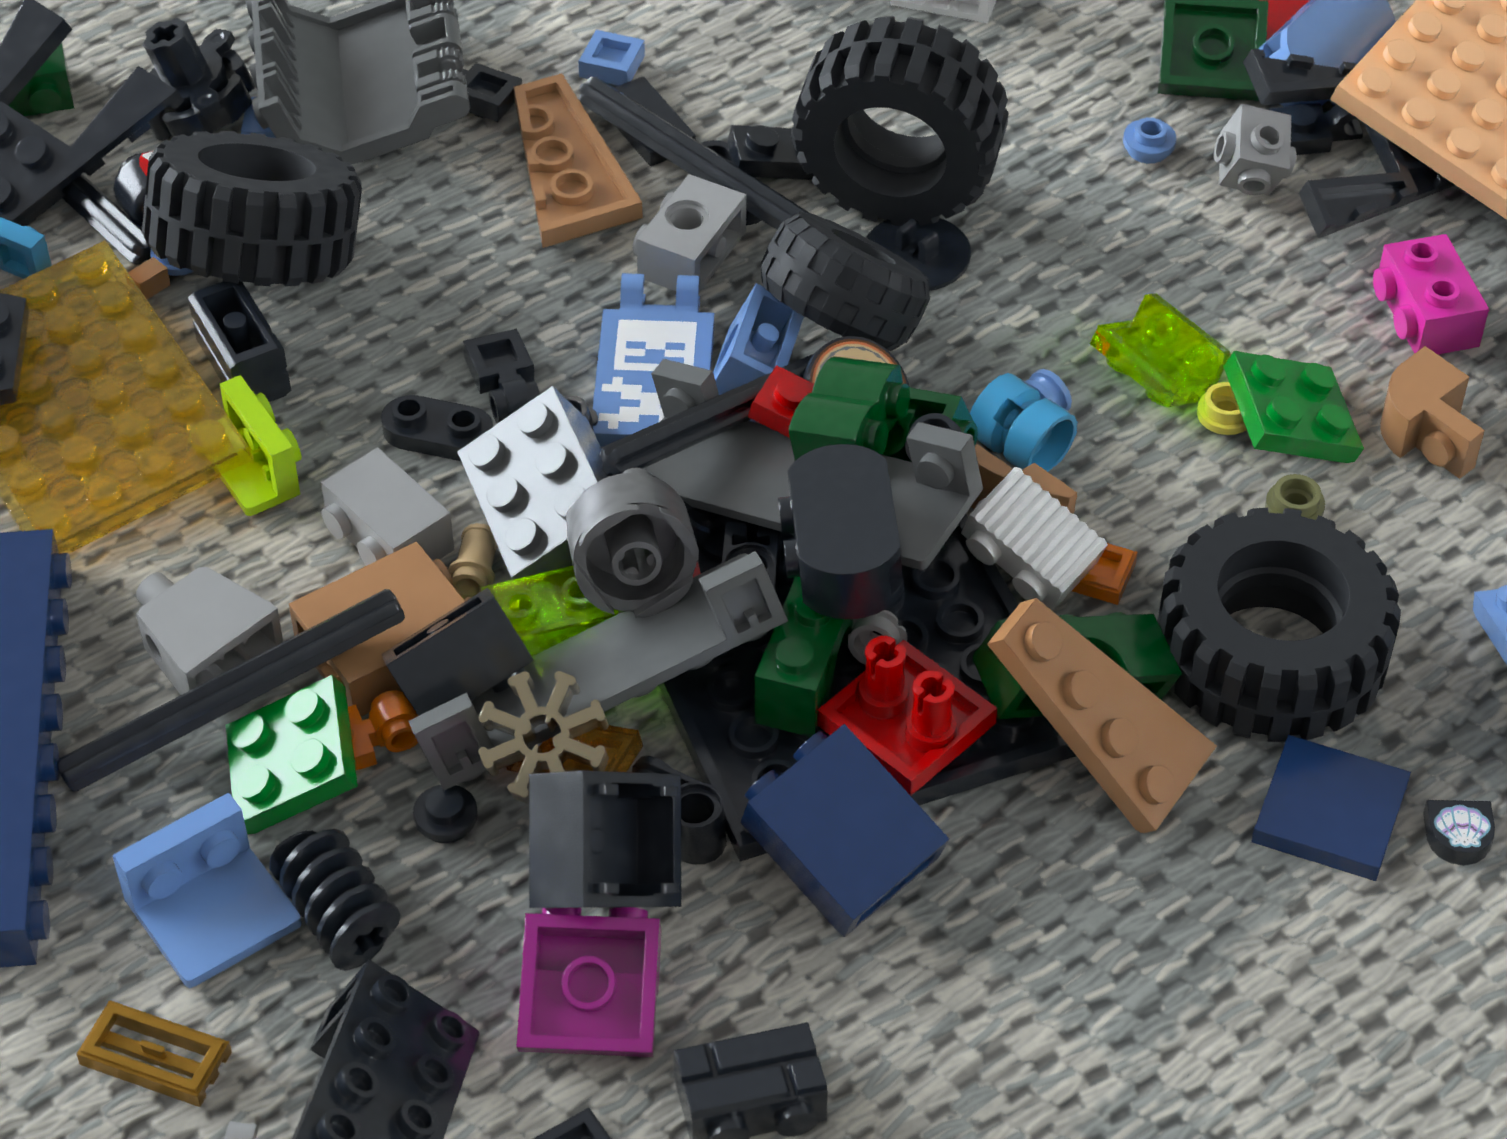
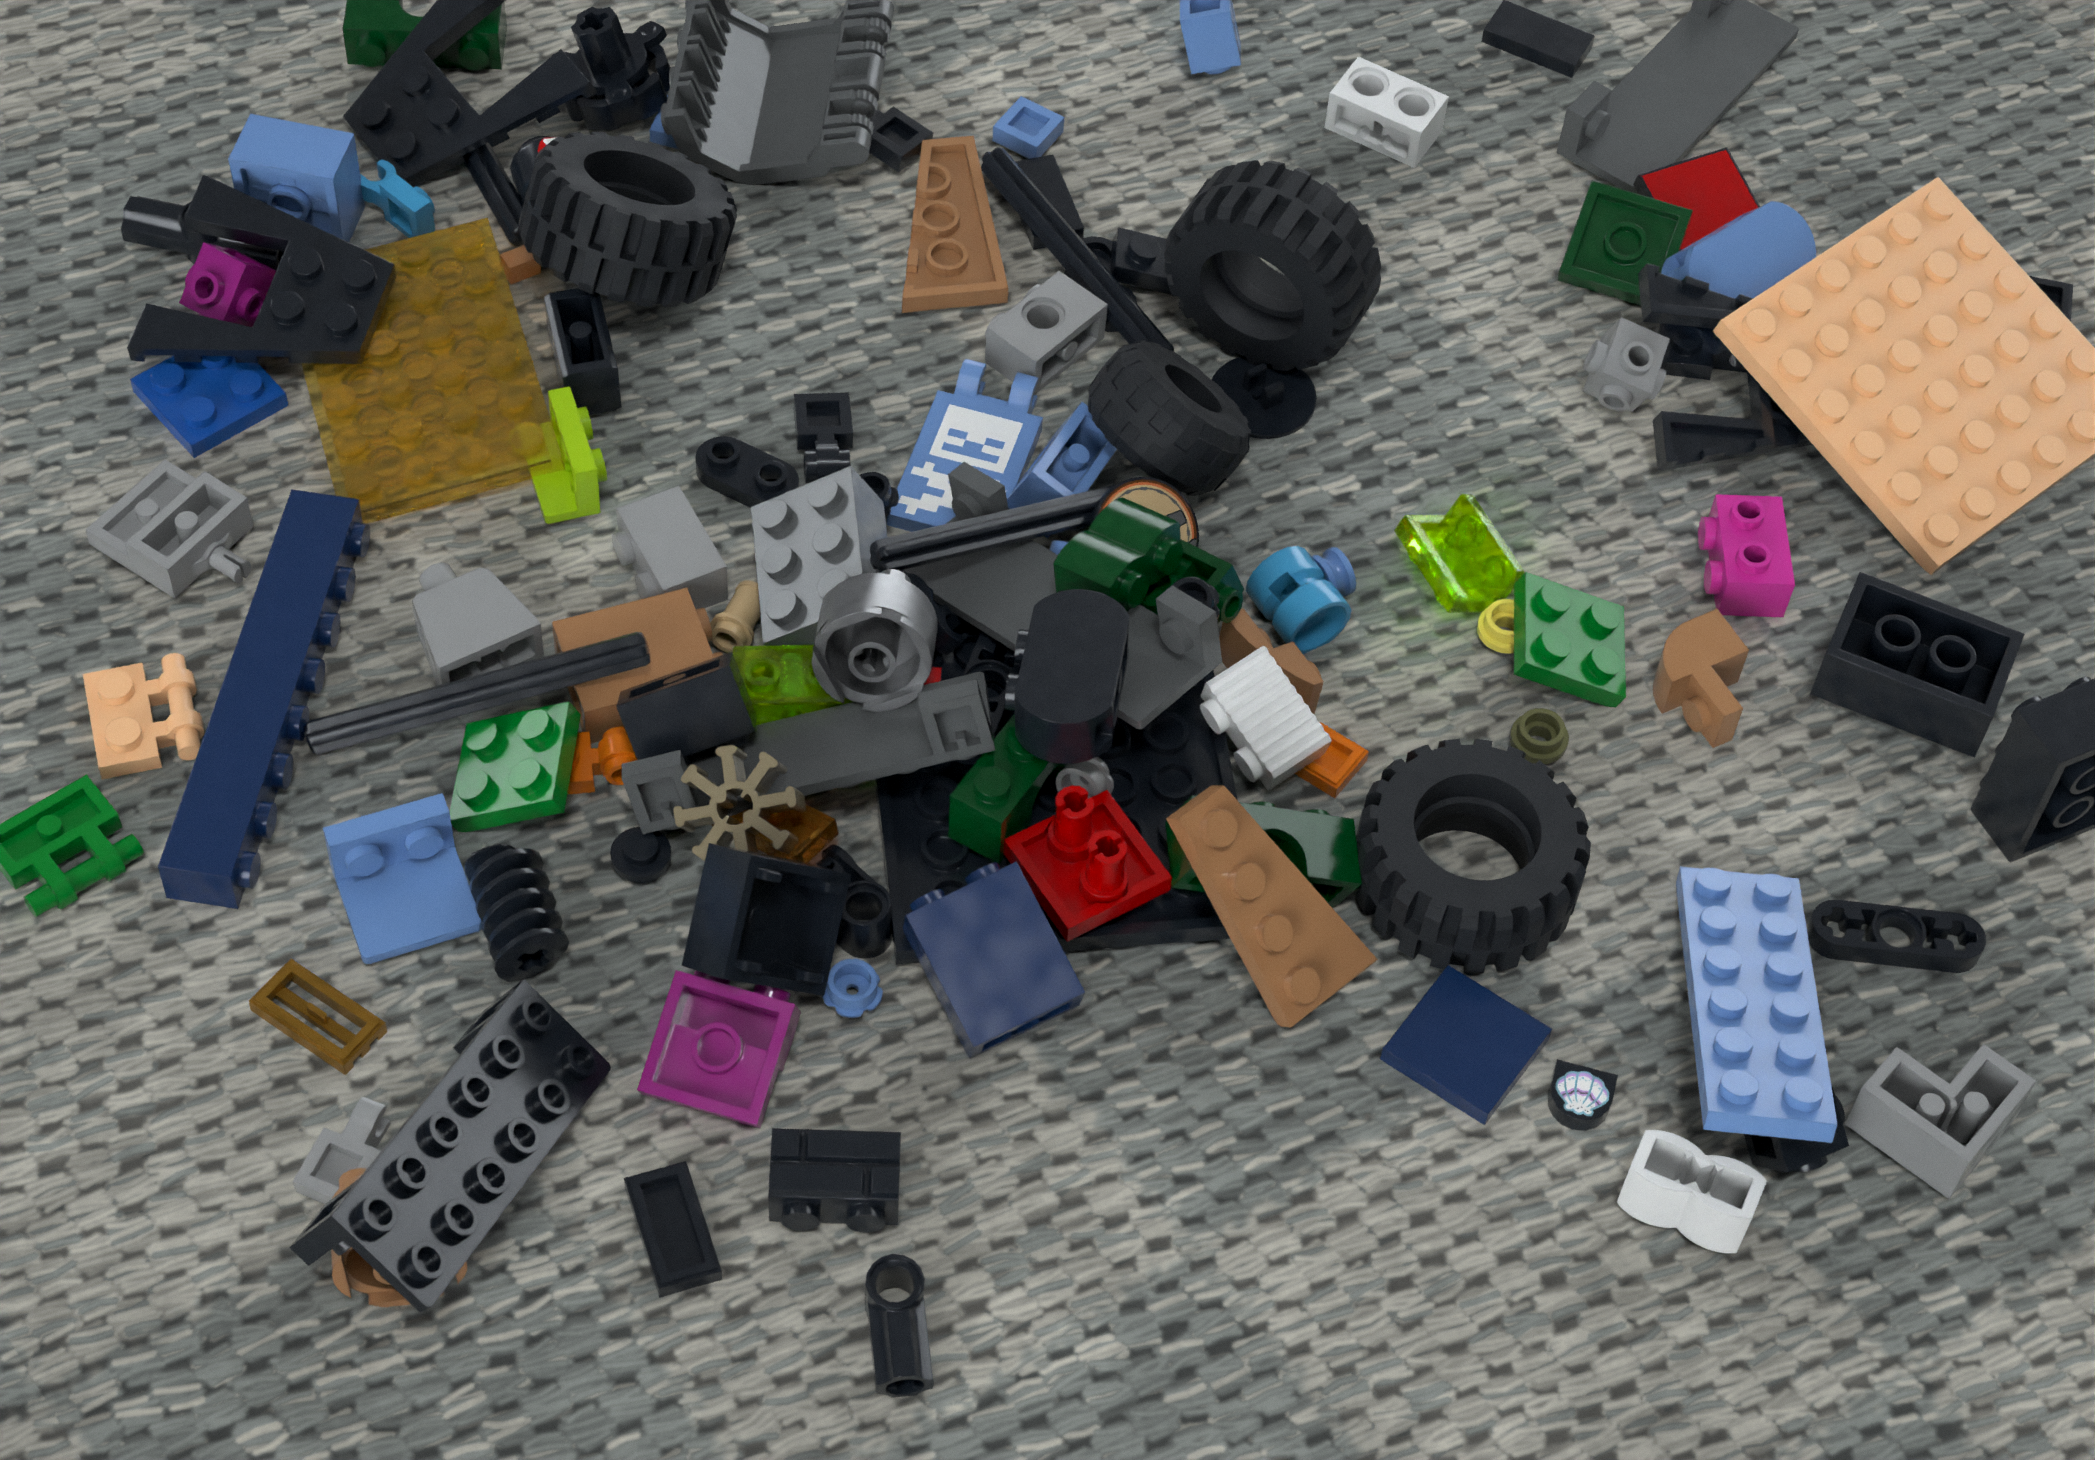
camera: 10 degrees right, 5 degrees up
(709, 880) = (854, 974): none -> medium blue plate
(779, 399) = (1059, 526): red plate -> none
(1149, 140) = (1530, 329): medium blue plate -> none

